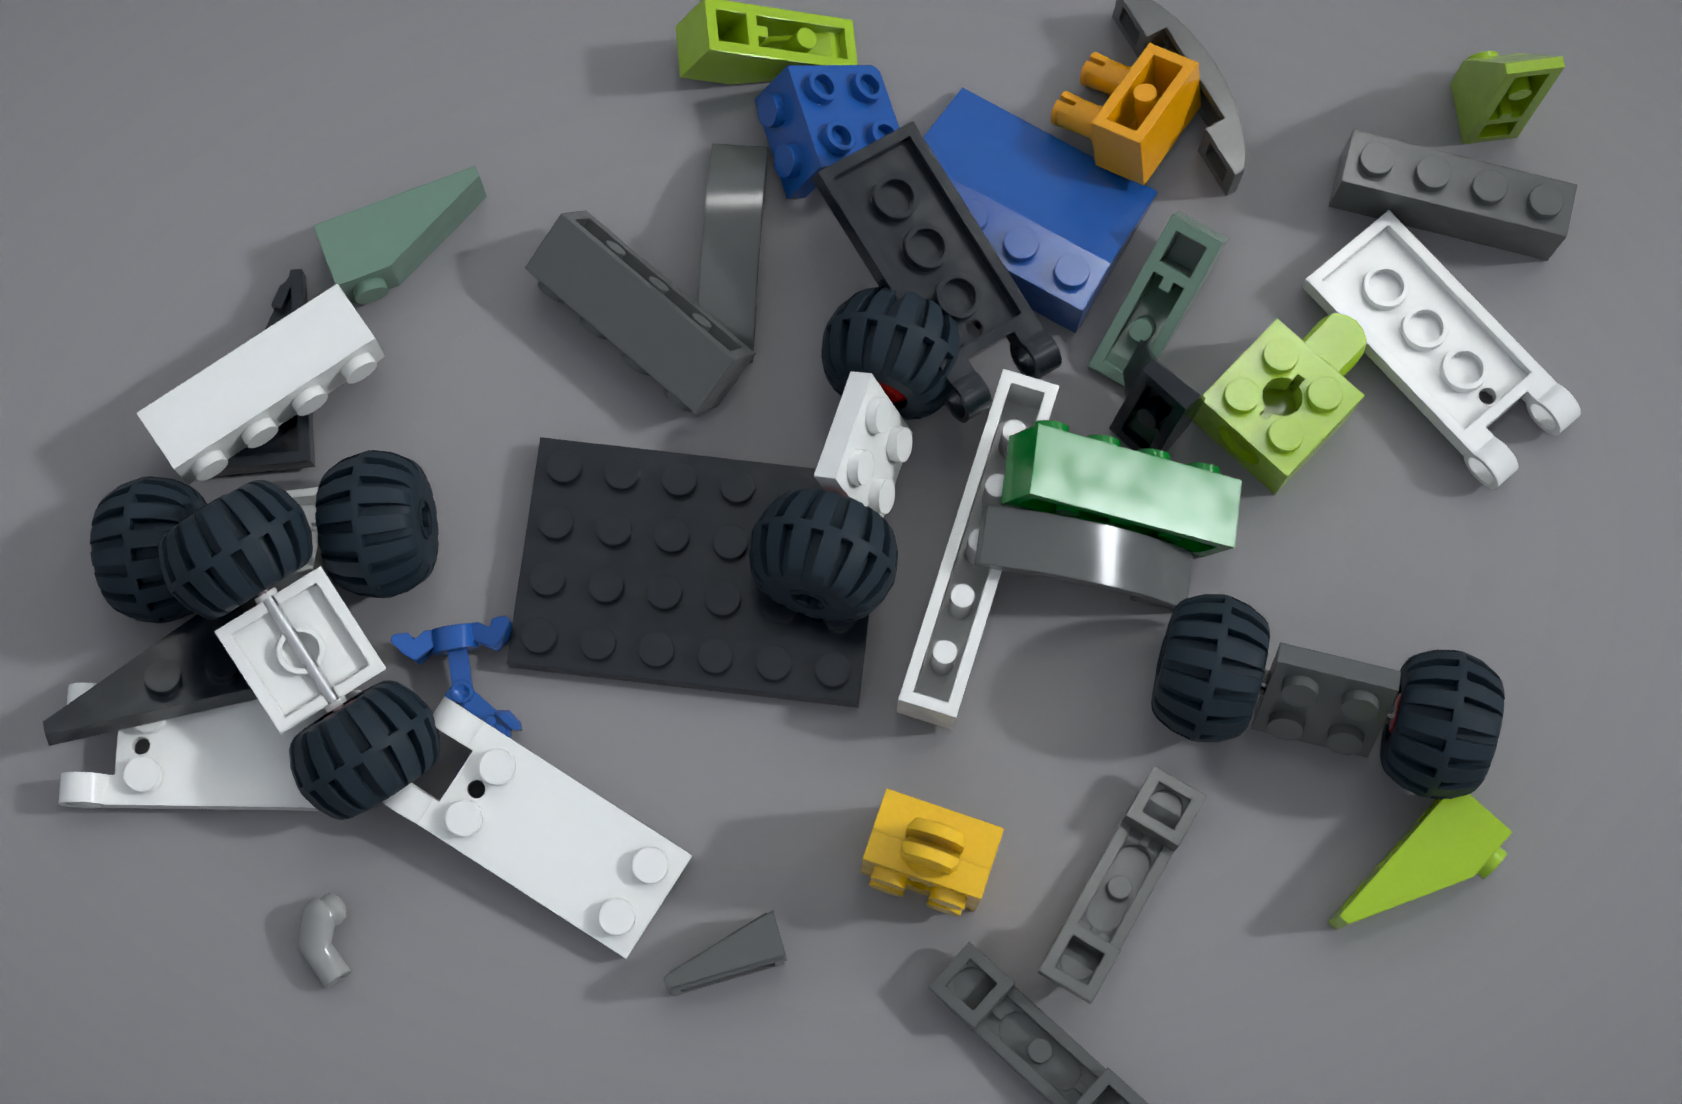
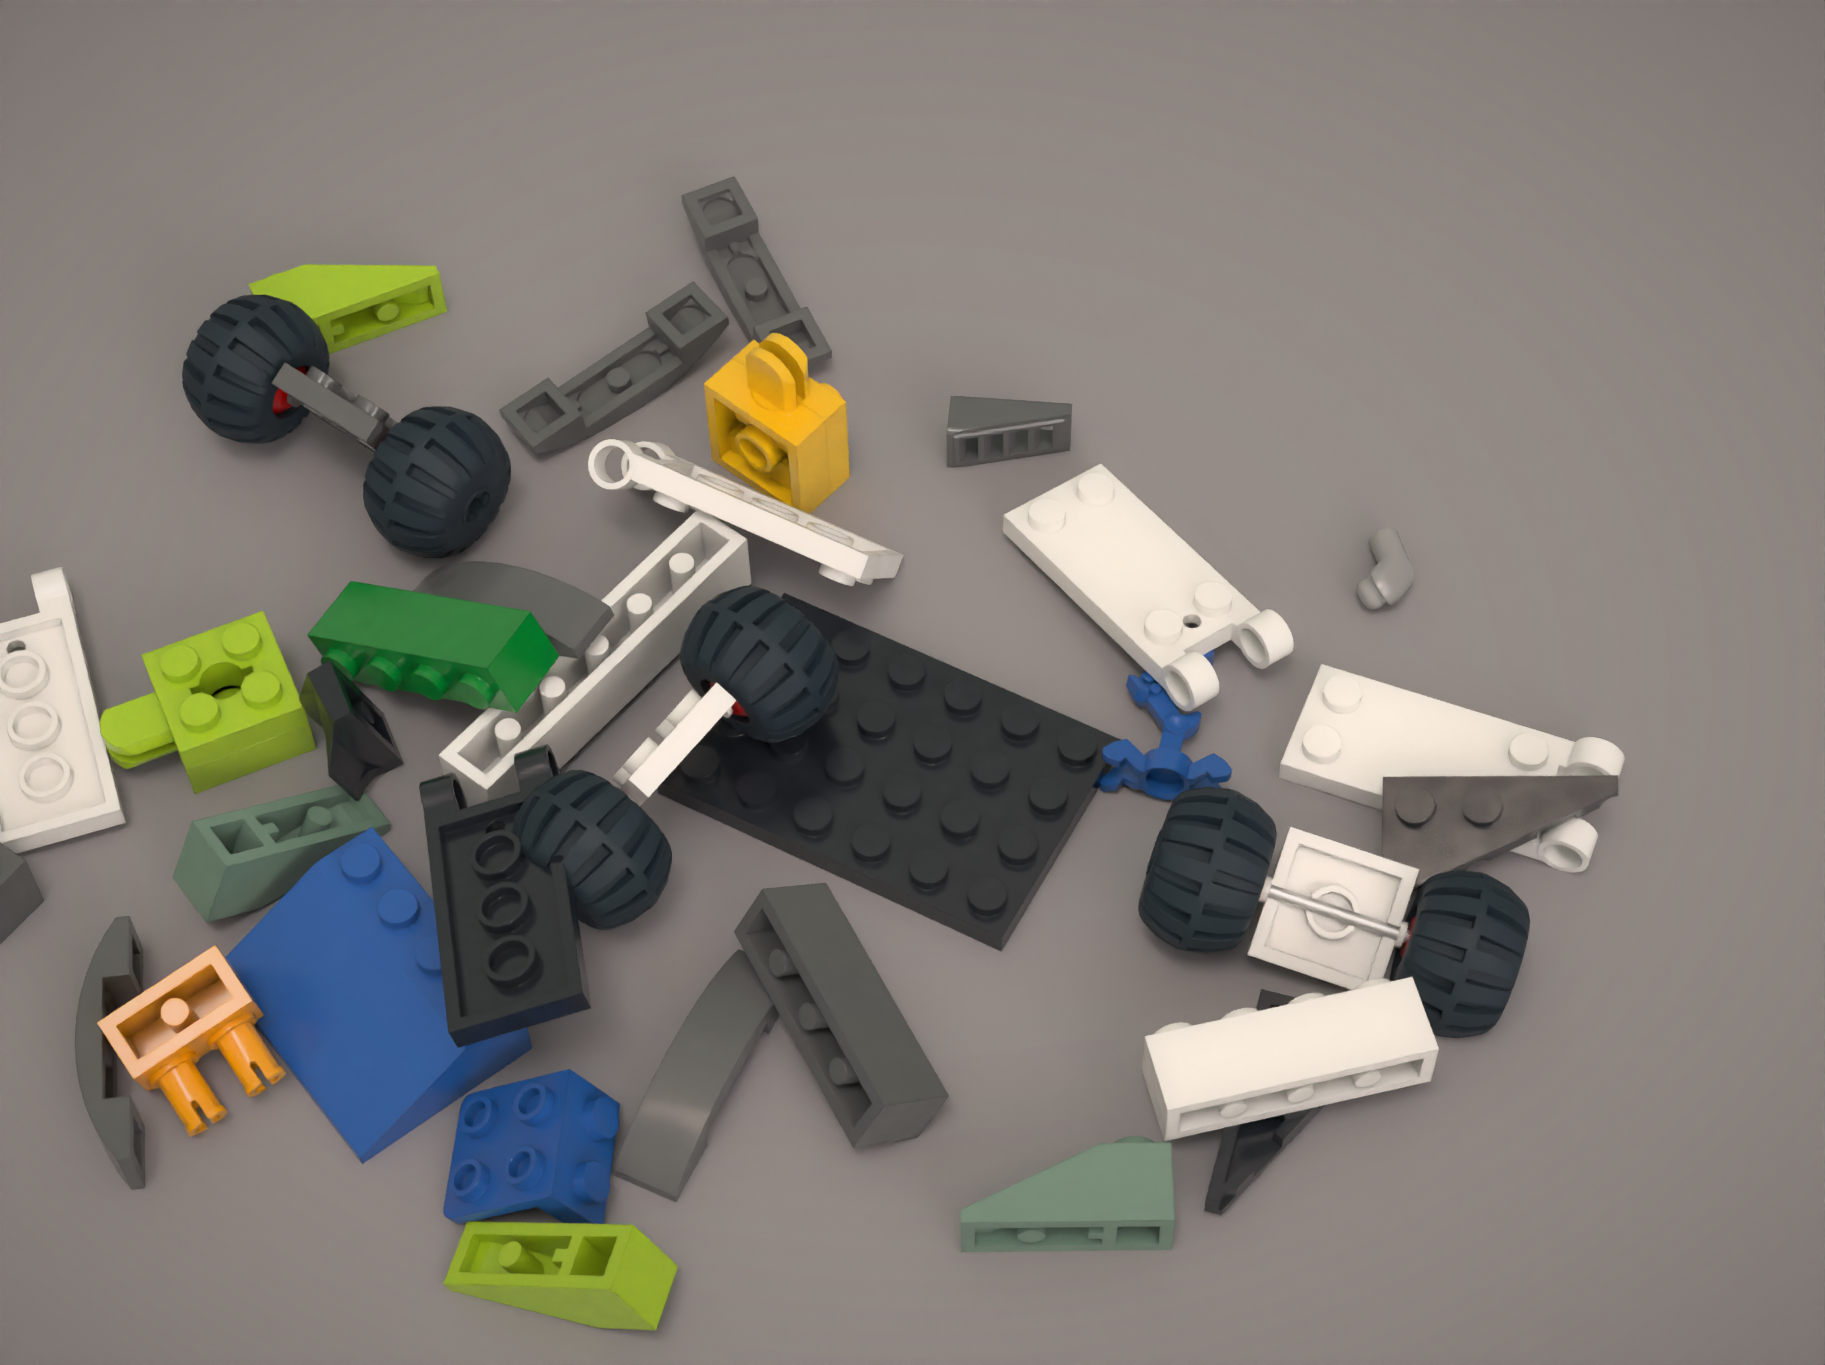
camera: 155 degrees left, 20 degrees down
(300, 649) = (1352, 819): black plate -> none
(918, 747) = (686, 485): none -> white hinge

